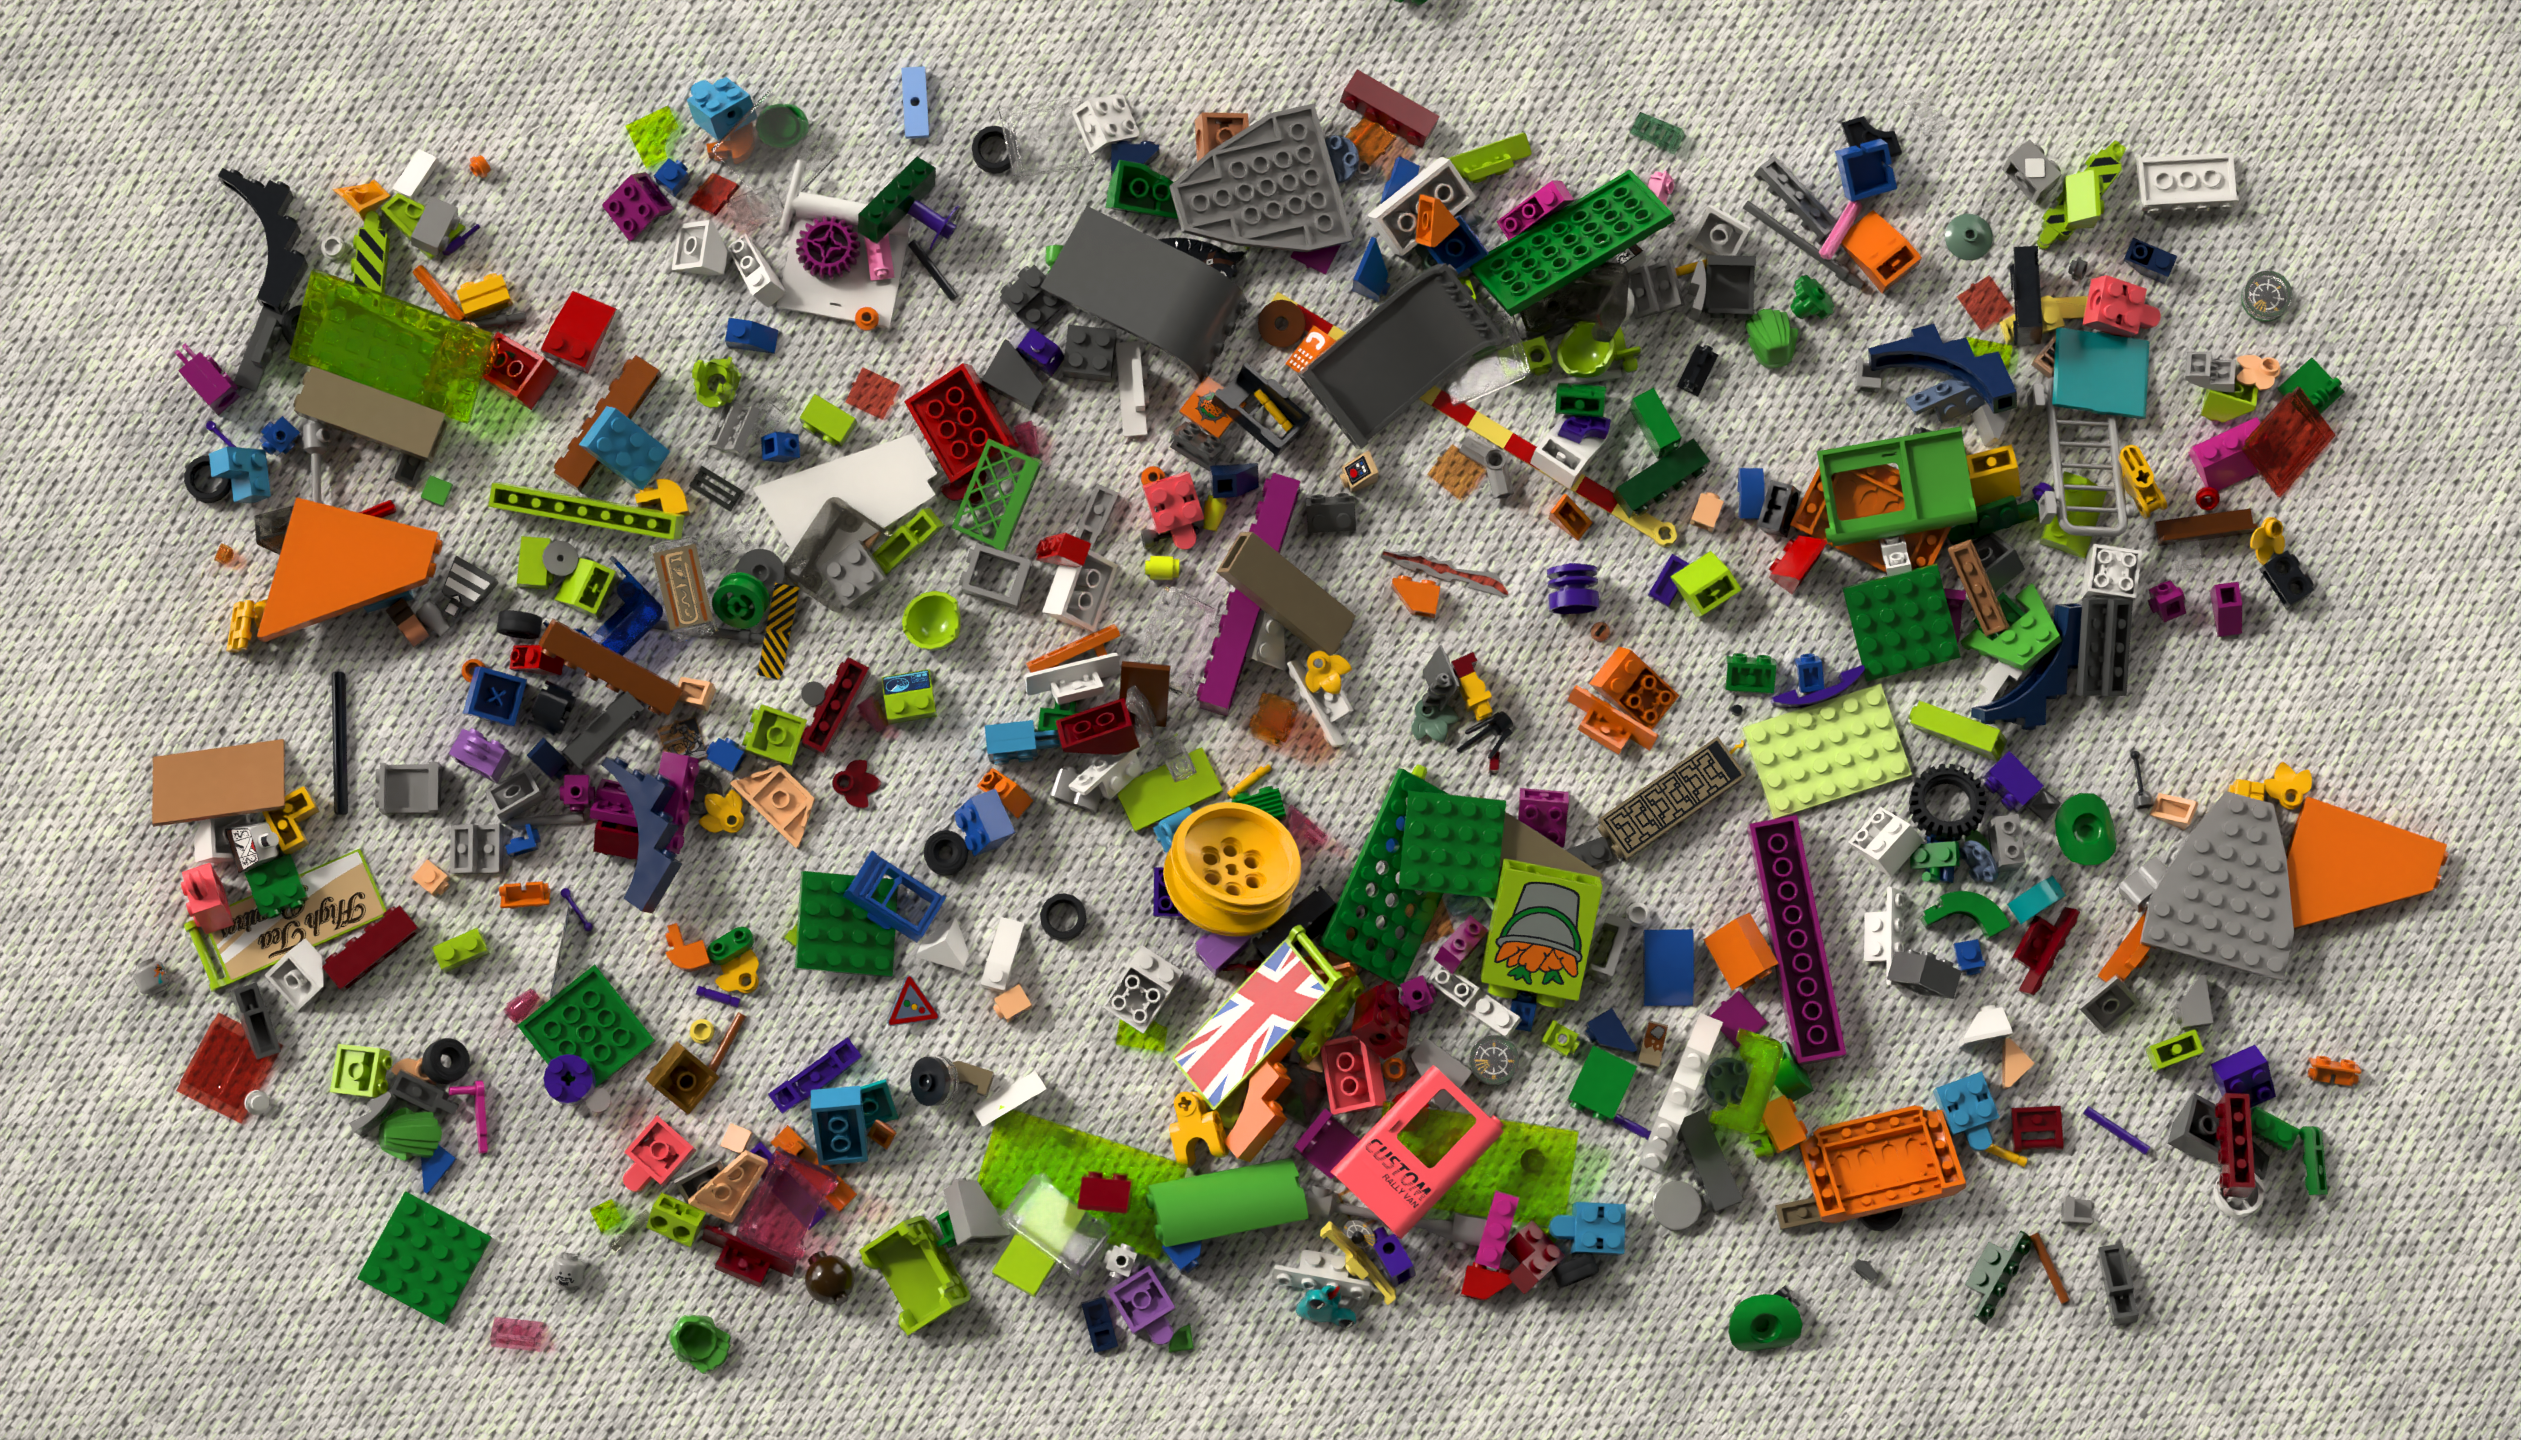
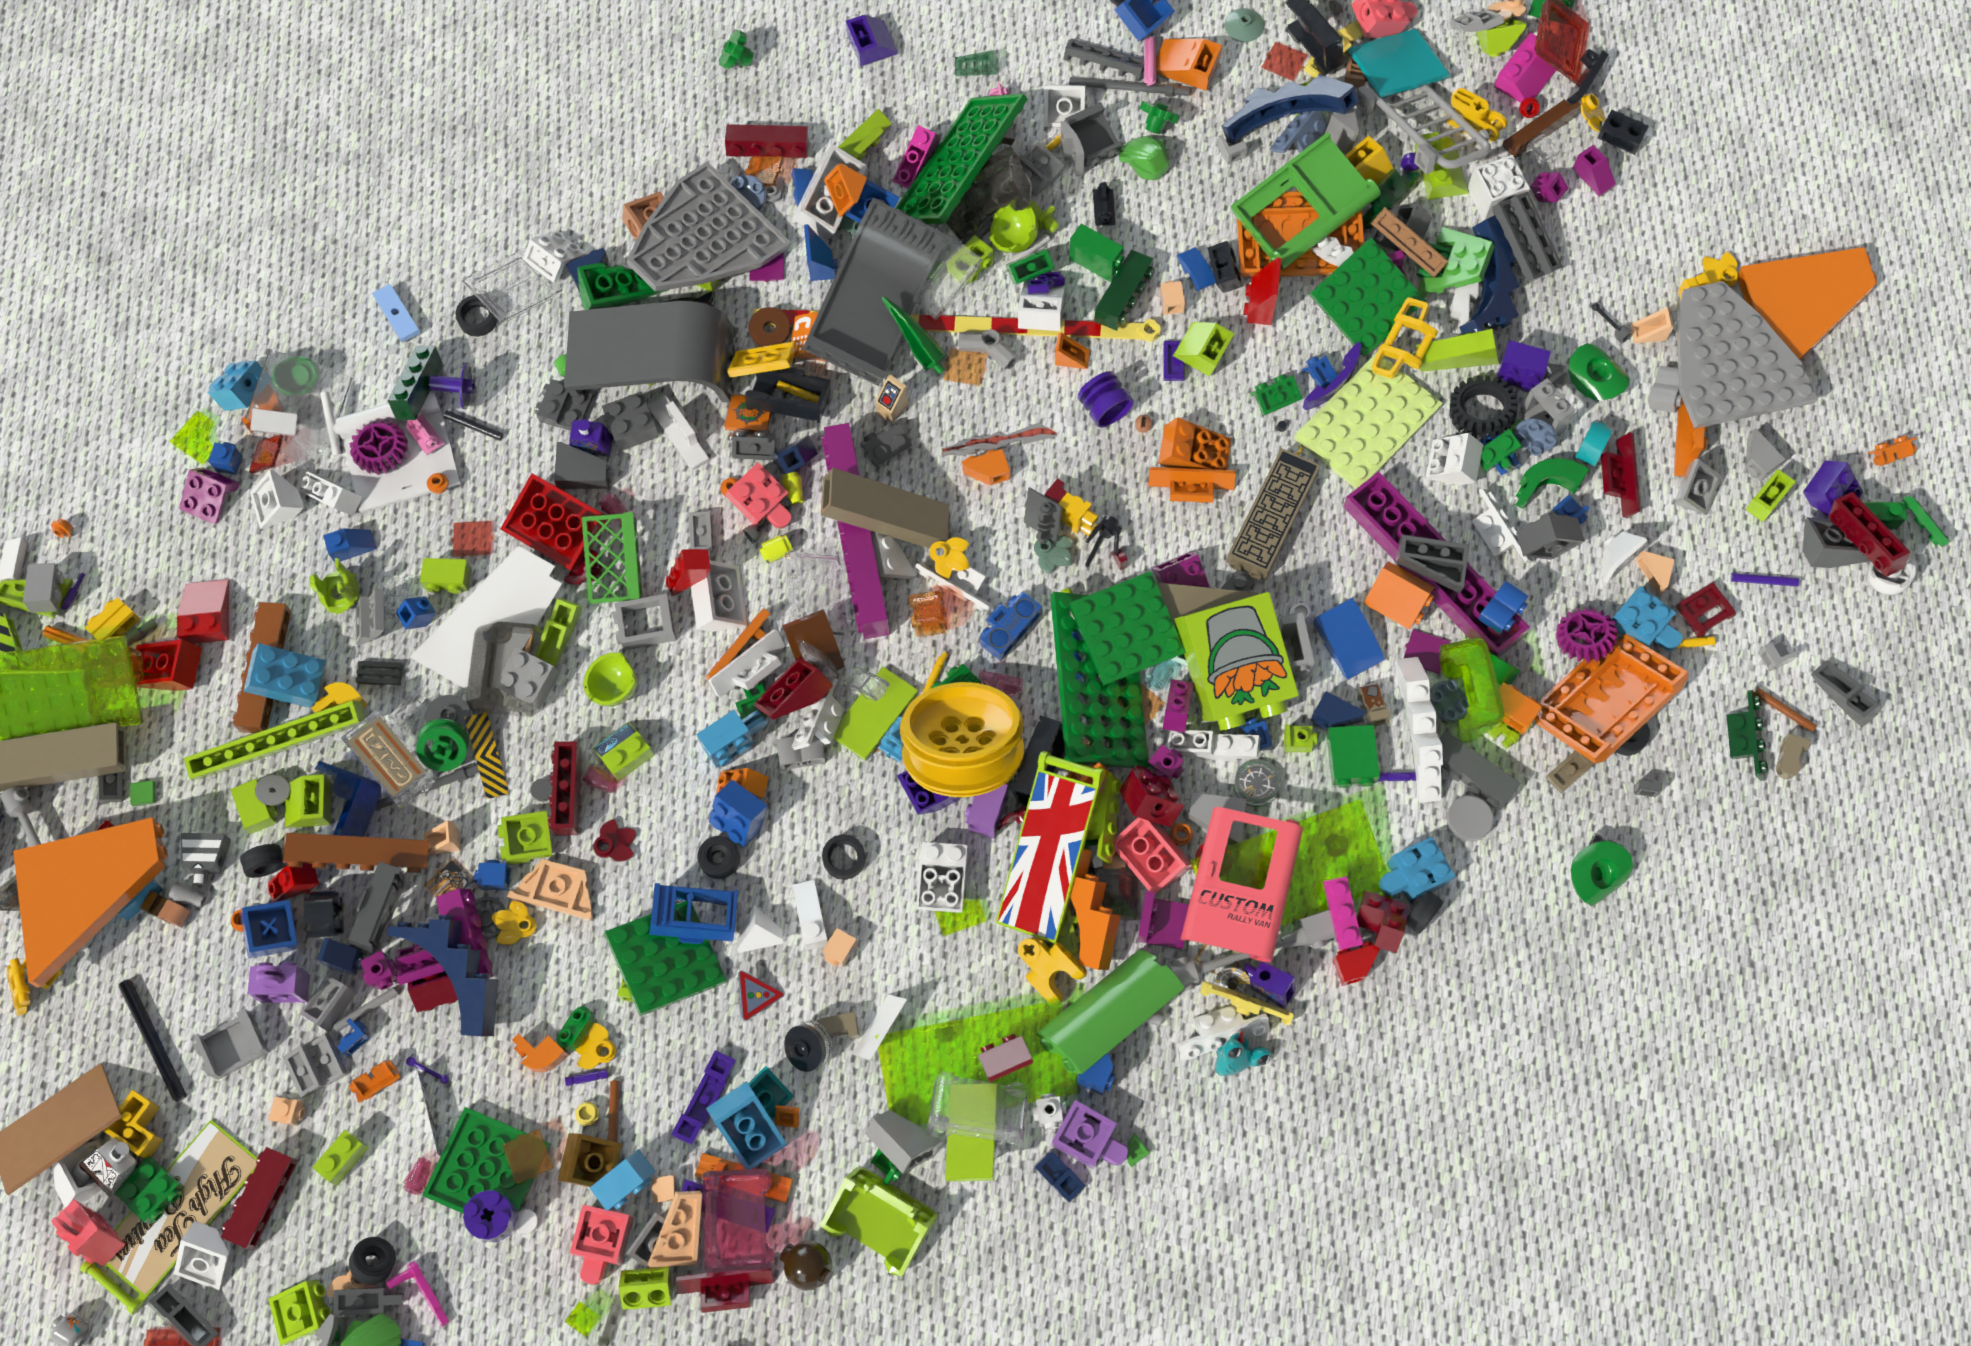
camera: 25 degrees left, 10 degrees down
(629, 1042) = (528, 1156): none -> clear orange piece
(706, 1112) = (627, 1176): none -> dark azure brick
(736, 168) = (273, 422): none -> white tile
(1254, 359) = (762, 359): none -> yellow tile
(1341, 778) = (1012, 626): none -> blue piece
(1424, 427) = (922, 344): none -> green piece
(1562, 45) = (870, 39): none -> dark purple slope
(1792, 939) = (1435, 559): none -> dark grey wedge
(1829, 1022) = (1503, 607): none -> blue brick
(1917, 667) = (1400, 355): none -> yellow bar
(1922, 1094) = (1582, 640): none -> magenta gear
(2015, 1321) = (1789, 755): none -> dark tan leg
(2306, 485) = (1593, 64): none -> black hinge

